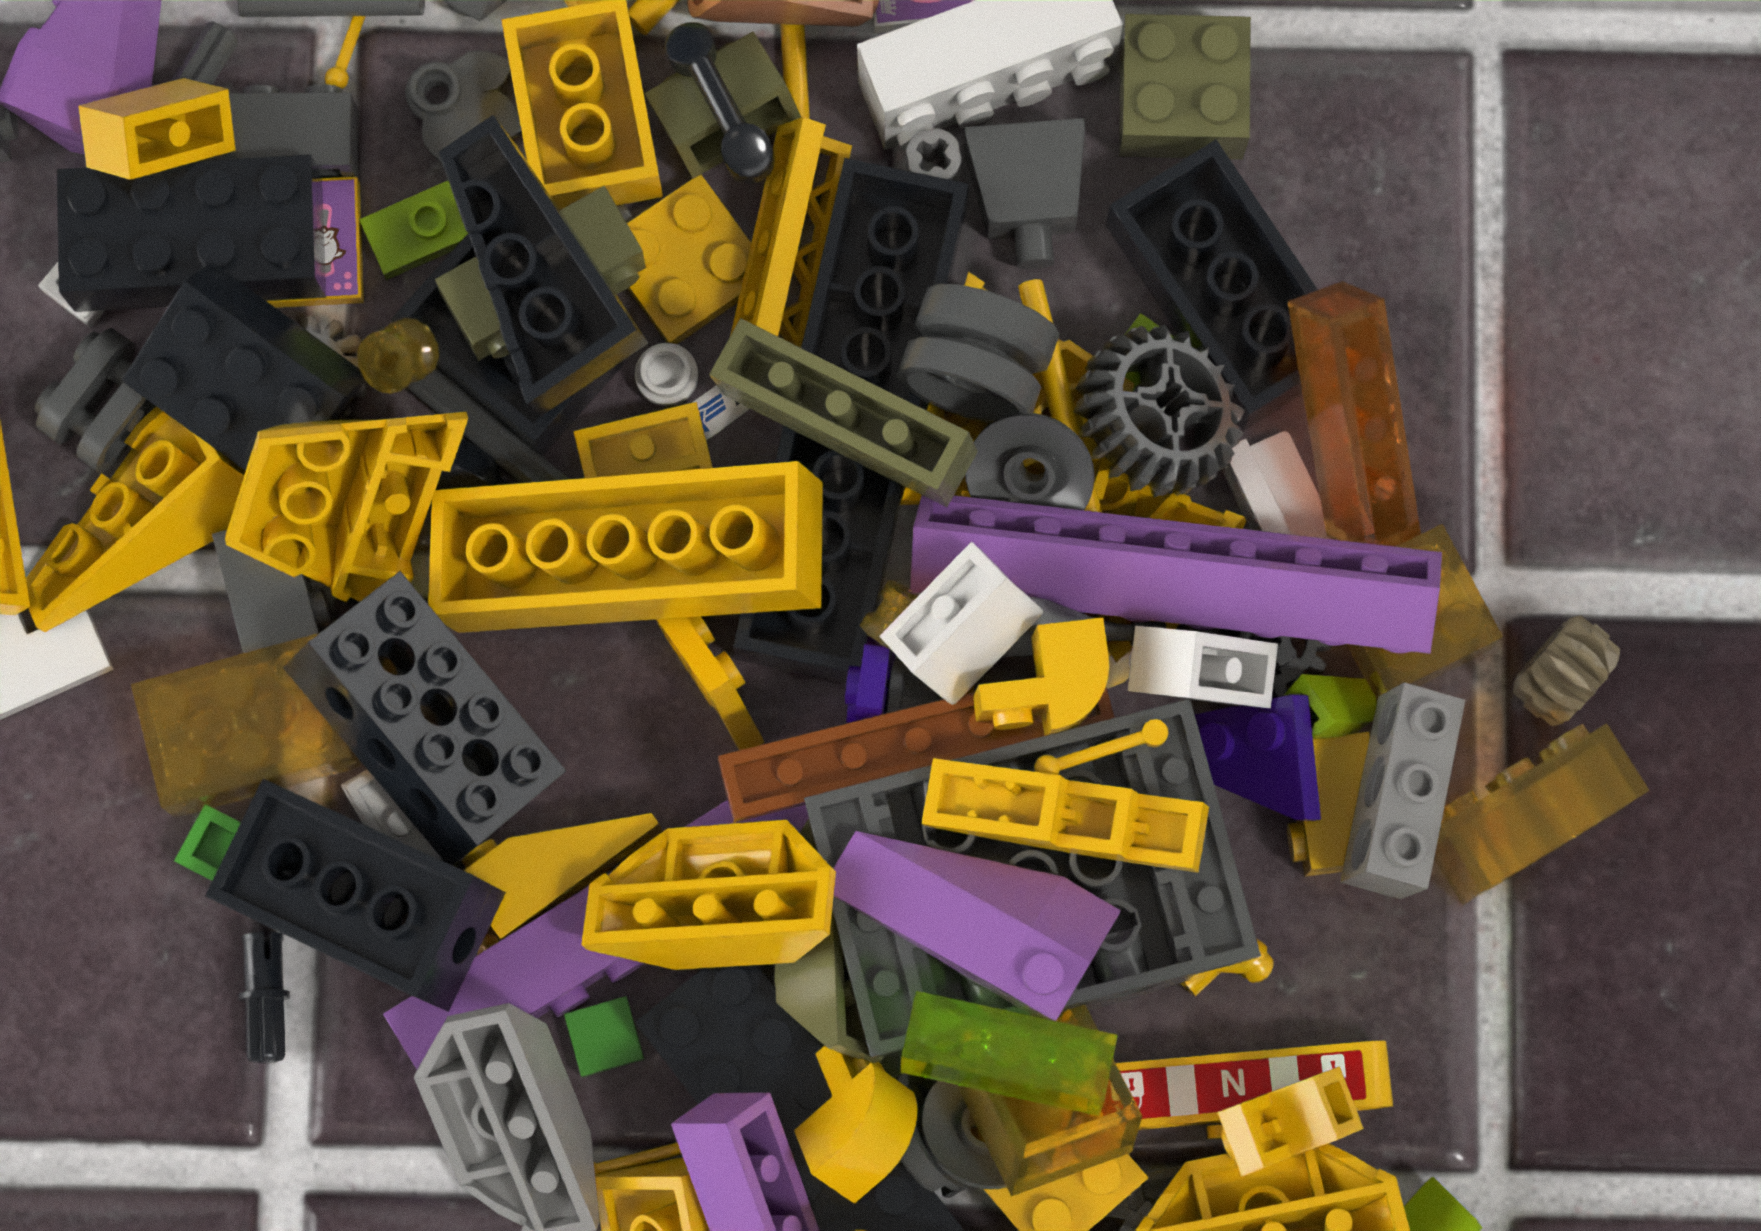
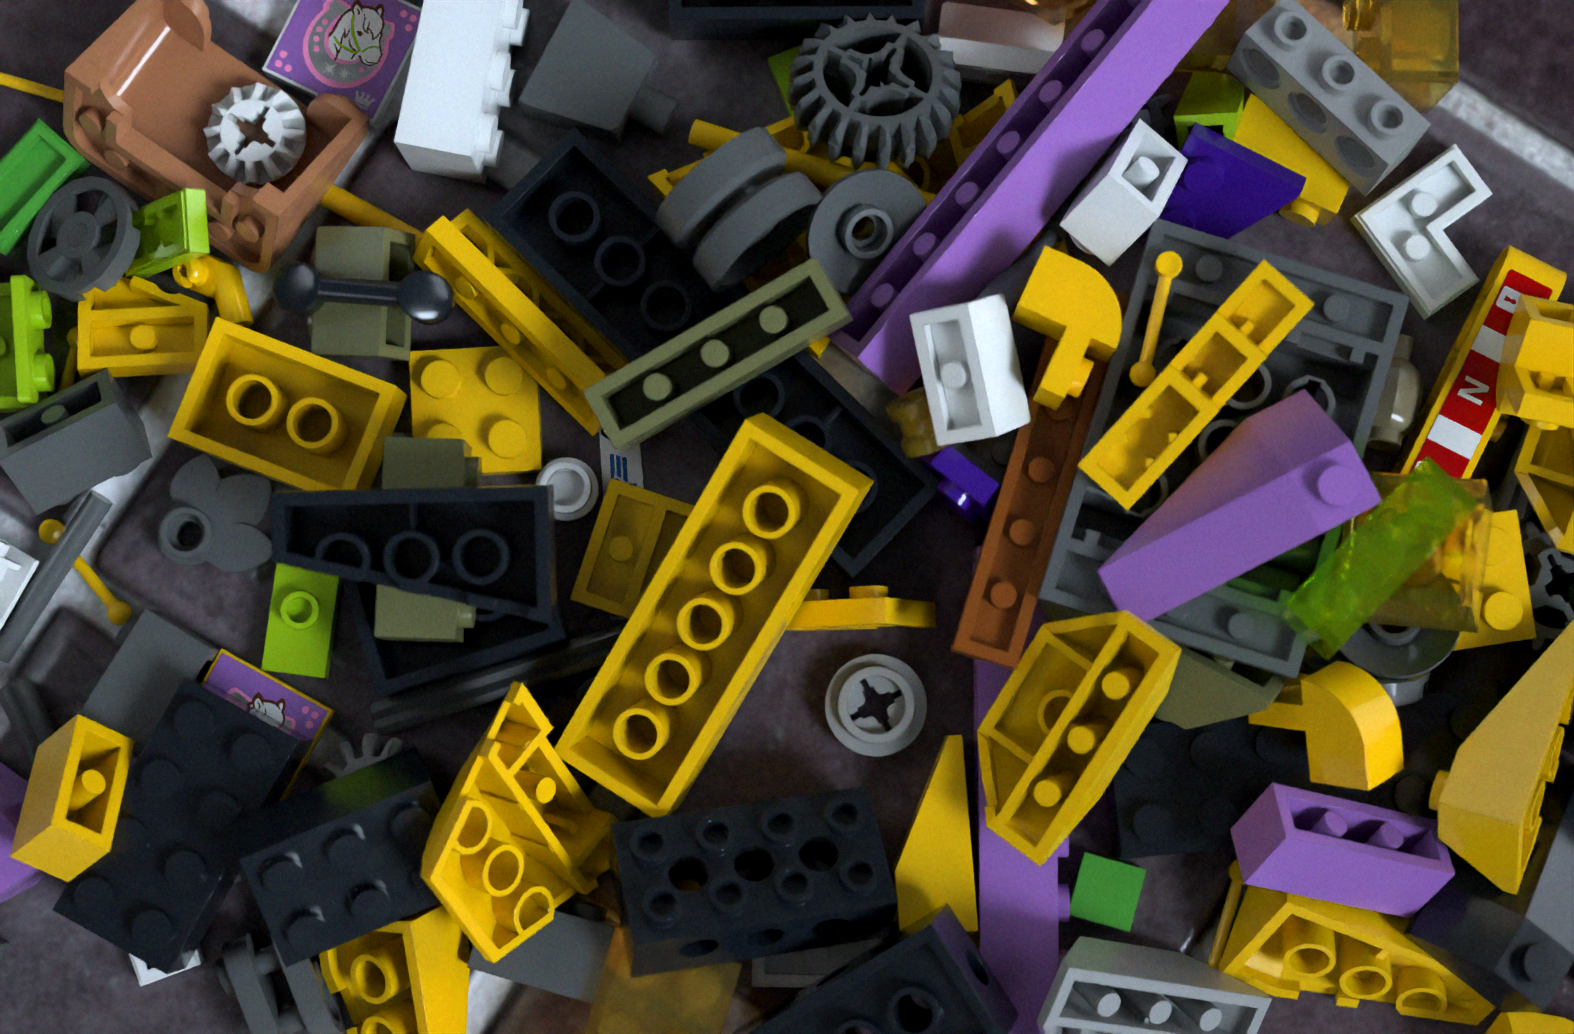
camera: 60 degrees left, 5 degrees up
(413, 360) = (401, 701): clear yellow wheel -> none
(637, 713) = (905, 714): none -> light grey gear
(929, 146) = (512, 135): light grey bush -> none
(1187, 1021) = (1399, 401): none -> dark tan plant
(1352, 947) = (1409, 224): none -> white tile

